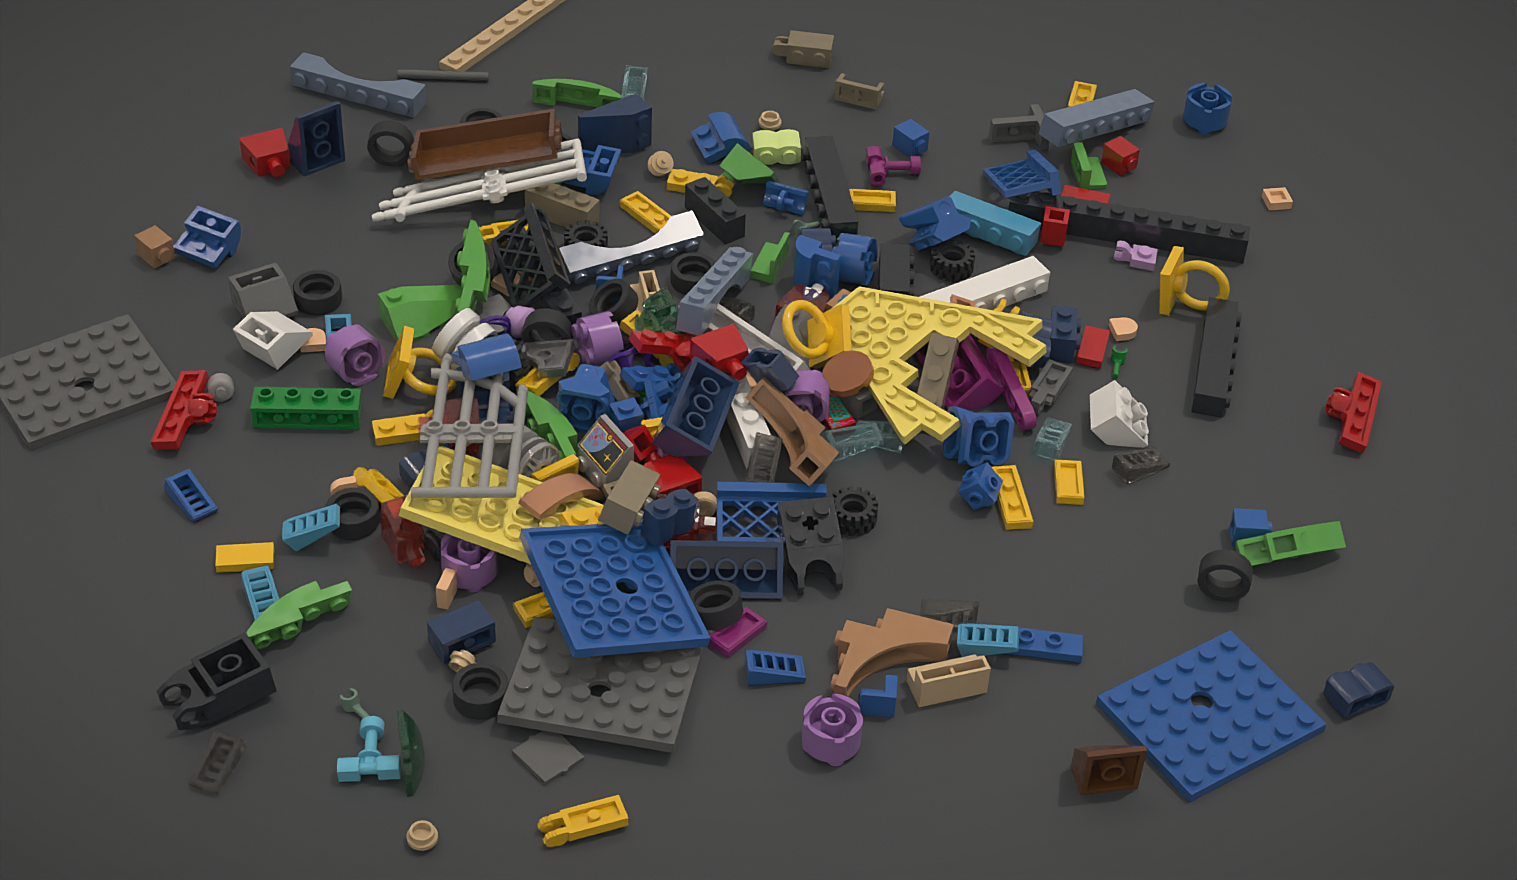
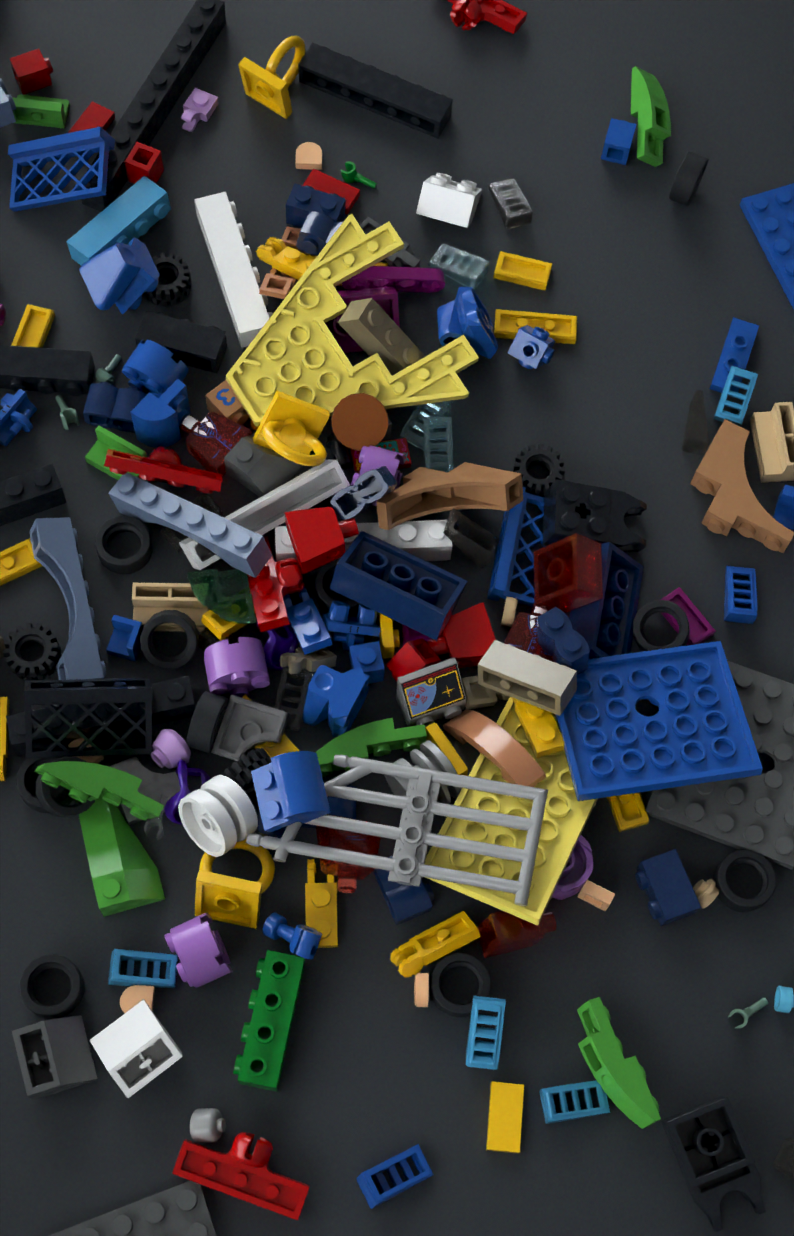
camera: 80 degrees left, 25 degrees up
(377, 407) = (302, 939): none -> blue leg
(741, 518) = (568, 573): none -> clear red brick
(763, 275) = (163, 466): none -> red plate

